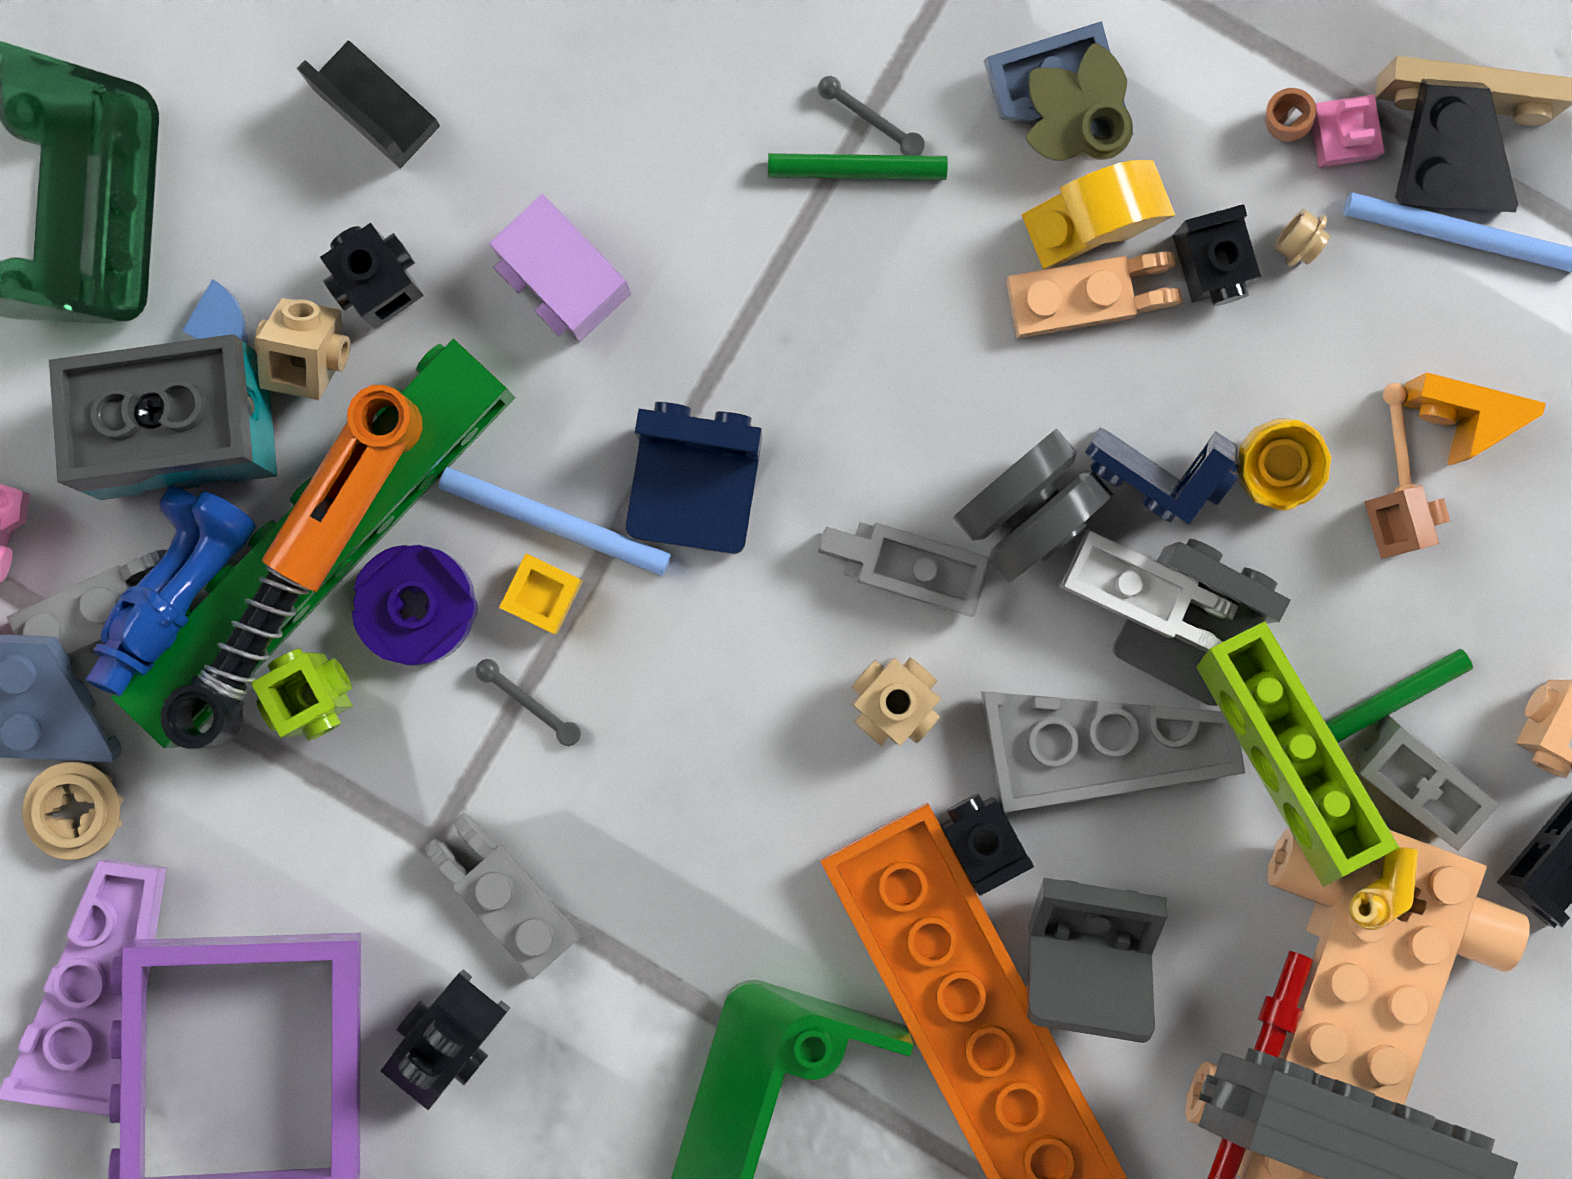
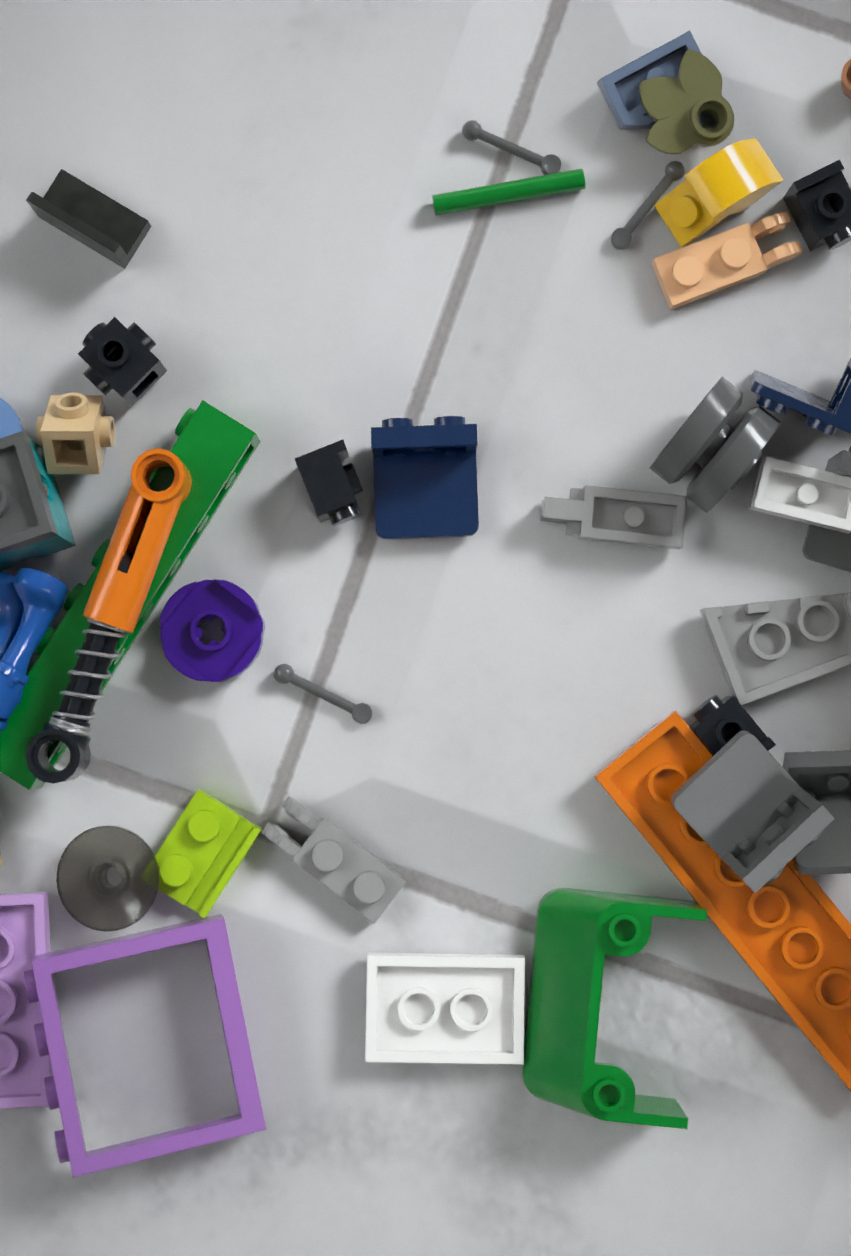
camera: 10 degrees left, 0 degrees up
(210, 867) = (84, 880): none -> clear smoke dish
(282, 692) = (117, 722): lime brick -> none
(351, 858) = (204, 852): none -> lime plate
(443, 1040) = (312, 988): black hinge -> none
(541, 594) = (316, 600): yellow plate -> none
(554, 521) = (314, 538): light blue bar -> none
(559, 268) = (278, 326): lavender brick -> none
(583, 463) = (330, 483): none -> black brick
(593, 1094) = (445, 1008): none -> white plate
(873, 690) = (612, 634): tan brick -> none
(978, 243) = (621, 236): none -> dark grey hinge
(988, 938) = (750, 810): none -> dark grey bracket

